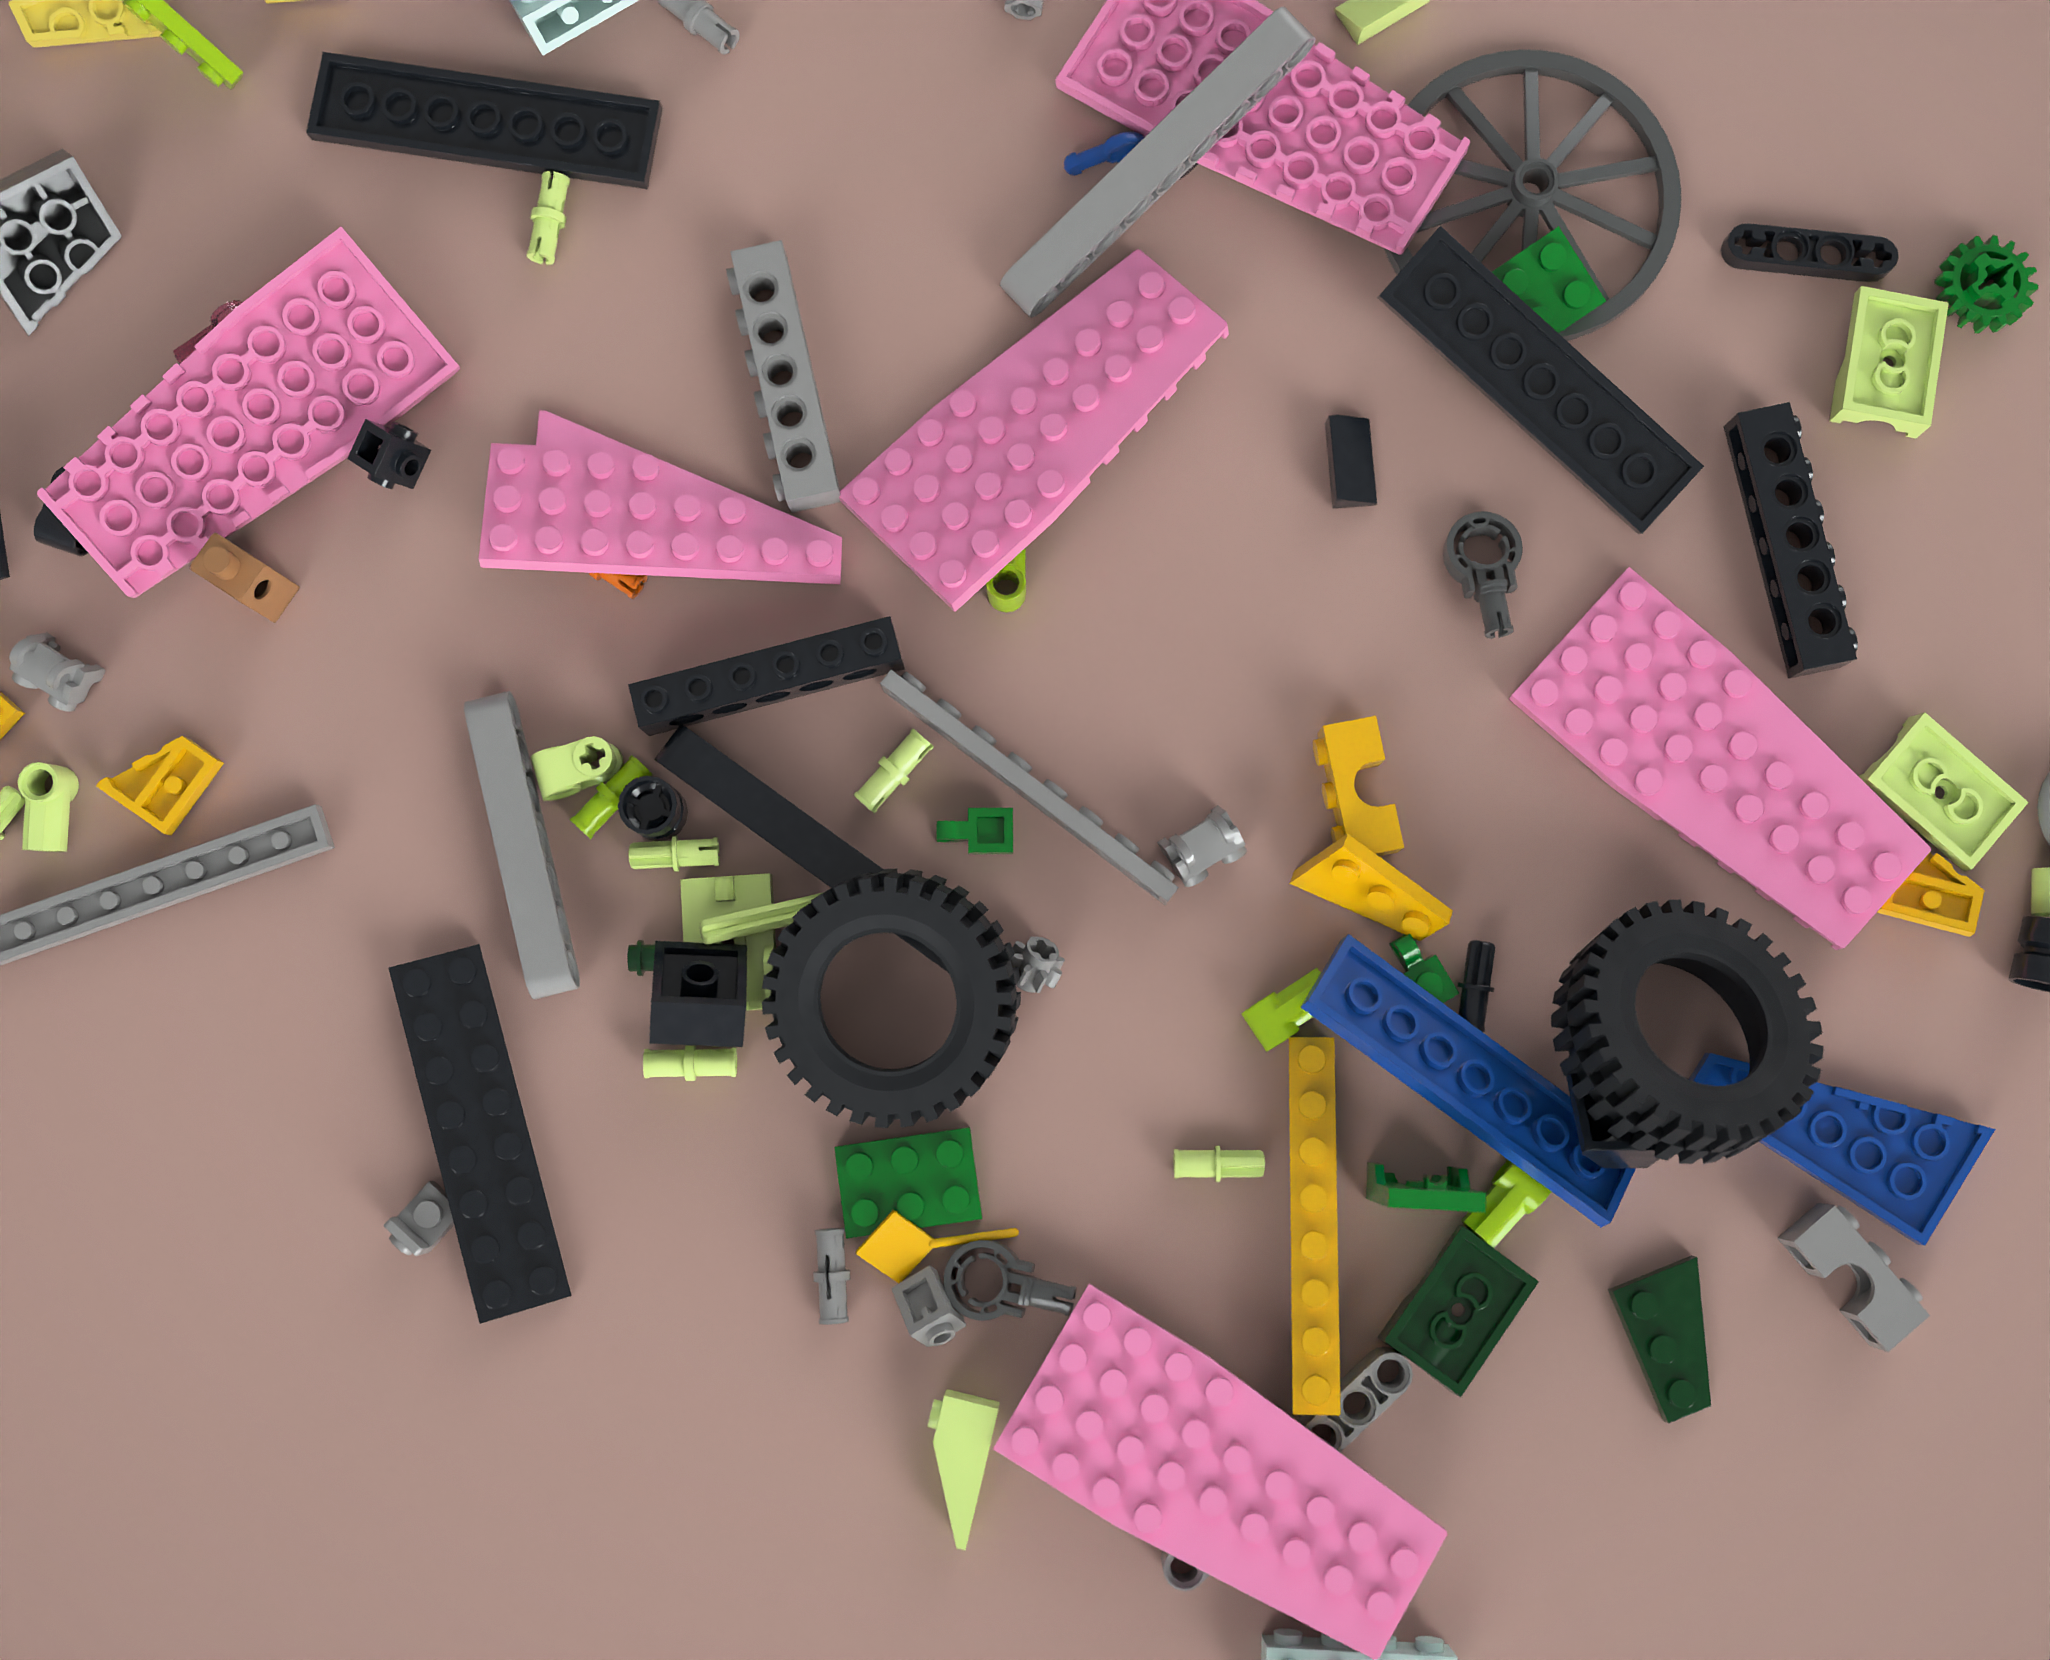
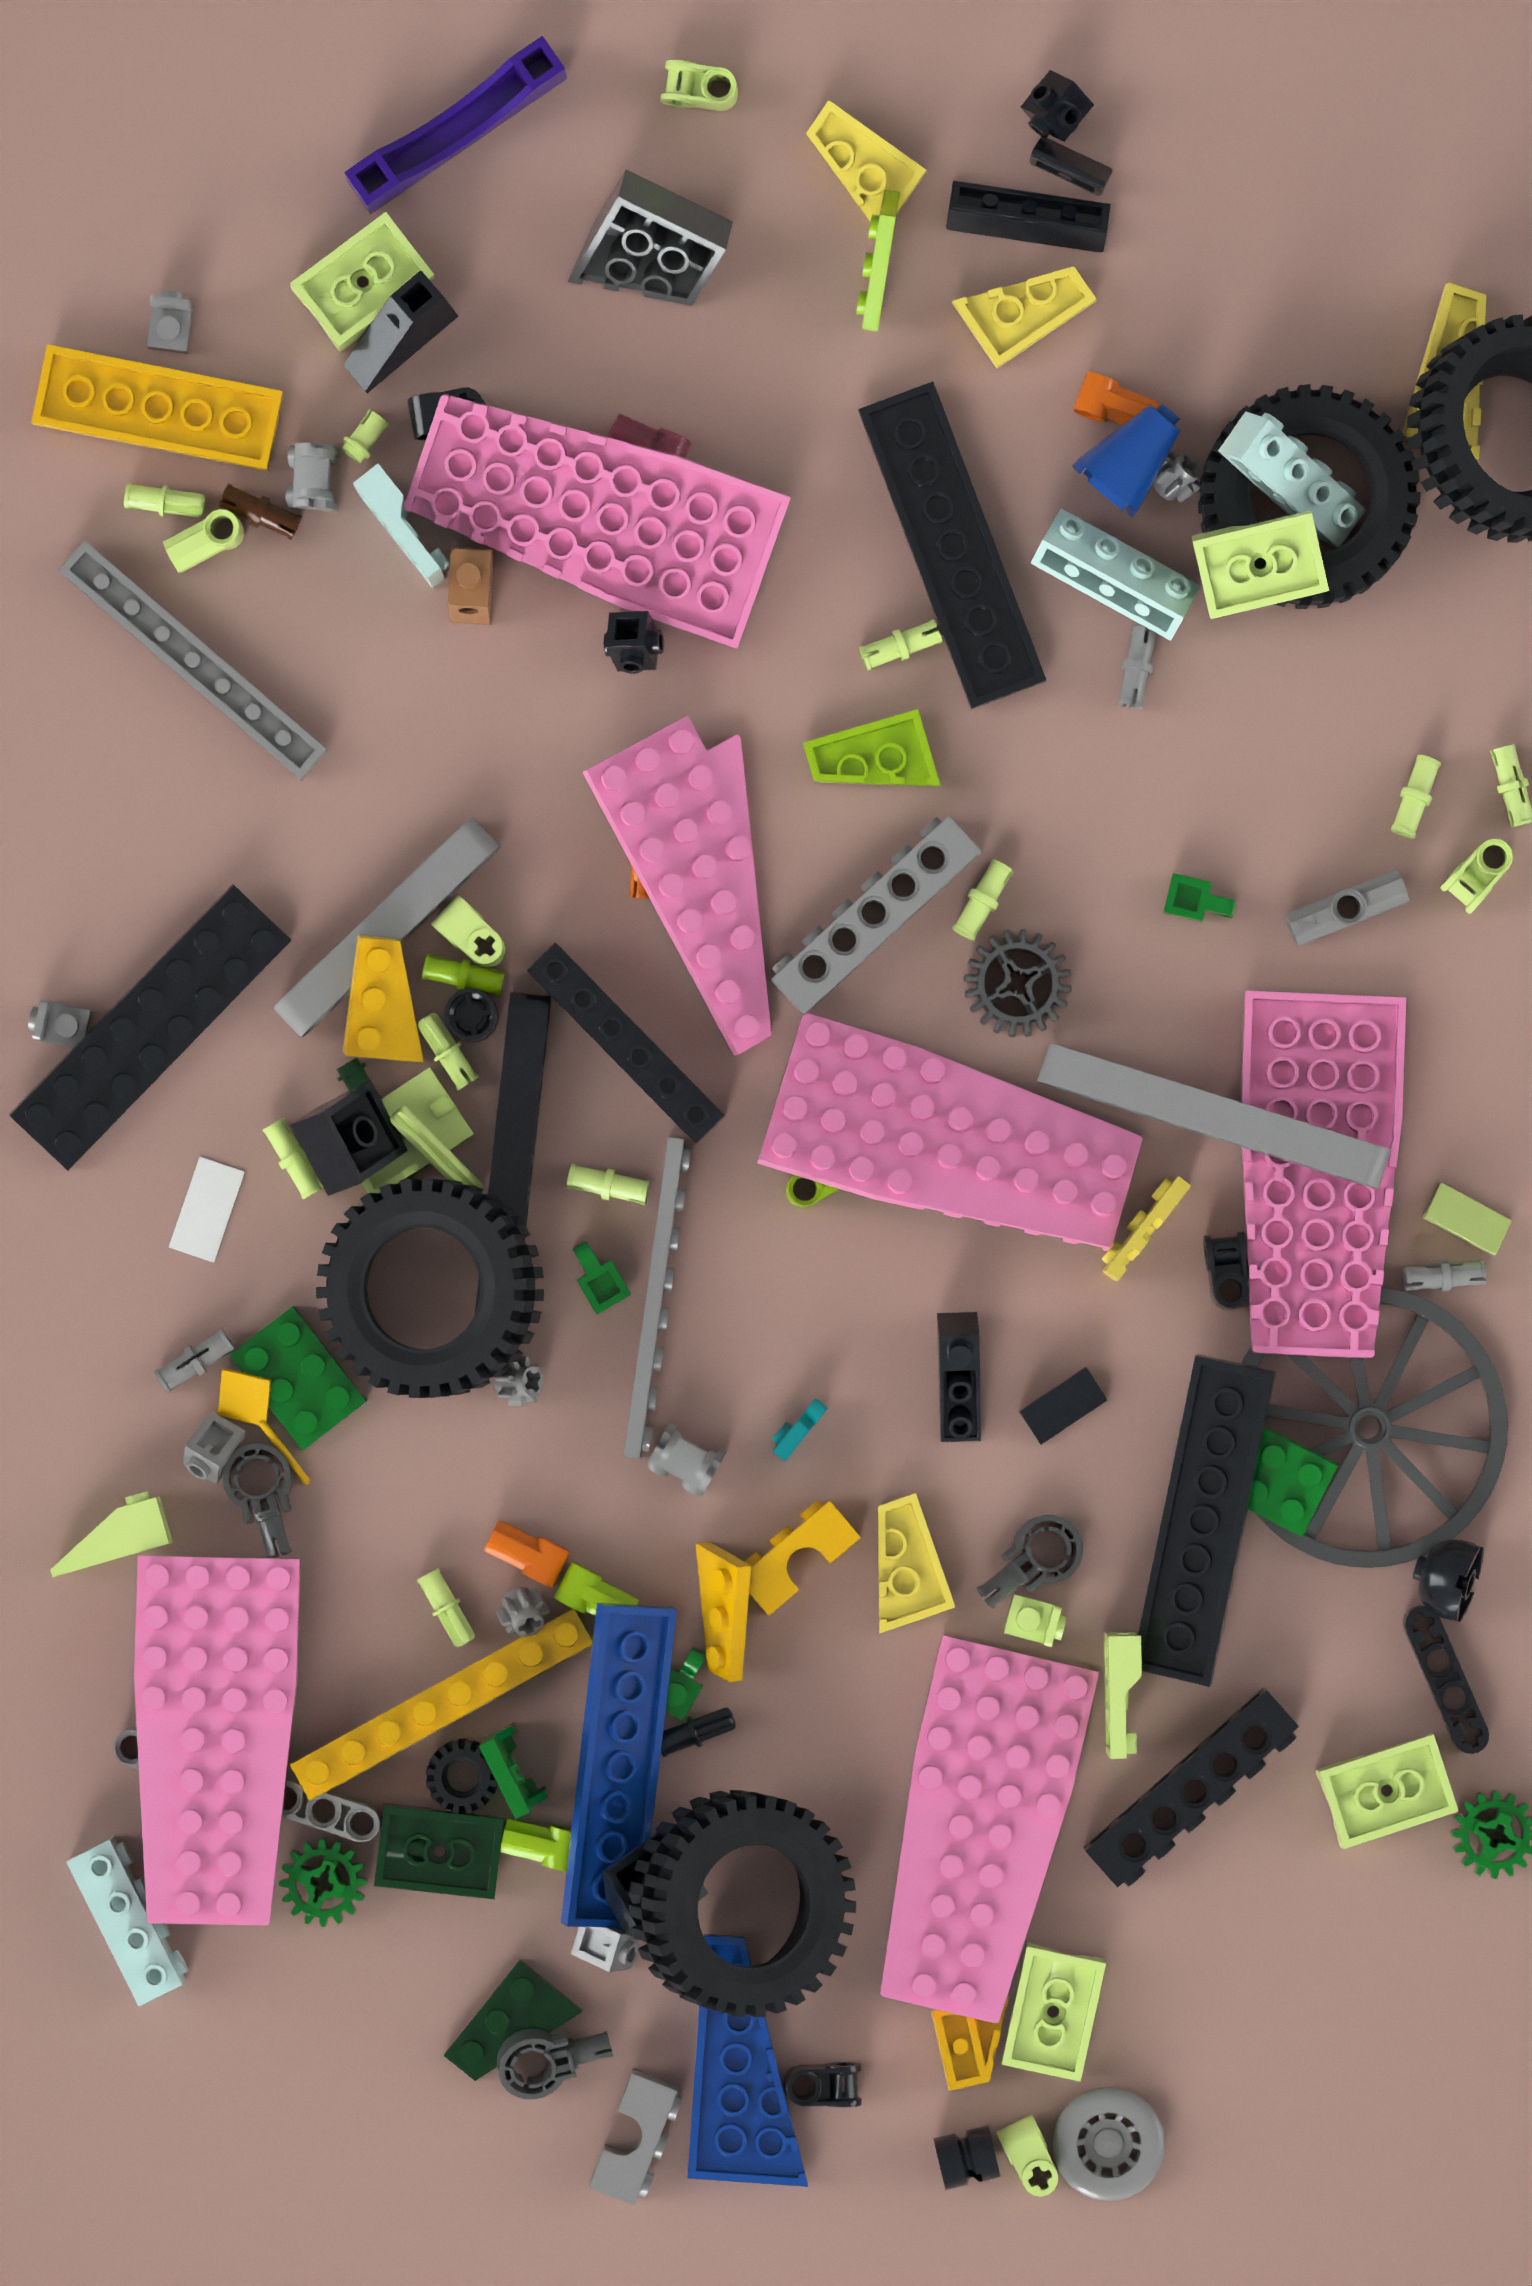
camera: 55 degrees right, 5 degrees up
(48, 602) = (364, 436): none -> yellowish green pin
(56, 739) = (259, 511): none -> reddish brown pin
(110, 616) = (388, 506): none -> light aqua piece
(164, 784) = (275, 618): yellow wing -> none
(588, 889) = (380, 1004): none -> yellow wing
(634, 295) = (875, 754): none -> lime wing
(692, 1178) = (206, 1209): none -> white sticker
(829, 272) = (983, 900): none -> yellowish green pin
(942, 82) = (1191, 898): none -> green plate
(944, 282) = (1047, 966): none -> dark grey gear
(1111, 151) = (1214, 1068): blue piece -> none
(1214, 1048) = (535, 1556): none -> orange piece
(1232, 298) = (1142, 1226): none -> light yellow wing
(1238, 731) = (790, 1436): none -> teal plate
(1264, 1089) = (522, 1611): none -> light grey gear
(1268, 540) = (959, 1376): none -> black slope
(1306, 236) = (1226, 1267): none -> black piece
(1404, 1270) = (440, 1787): none -> black tyre
(1413, 1459) = (340, 1889): none -> green gear
(1424, 48) = (1444, 1275): none -> light grey pin
(1427, 690) = (908, 1566): none -> light yellow wing
(1545, 599) = (1034, 1620): none -> yellowish green bracket
(1647, 1197) = (606, 1948): none -> light grey bracket
(1648, 542) = (1121, 1672): none -> yellowish green piece
(1718, 190) = (1448, 1577): none -> black cylinder
(1735, 1304) = (562, 2058): none -> dark grey pin
(1903, 1049) = (827, 2084): none -> black piece

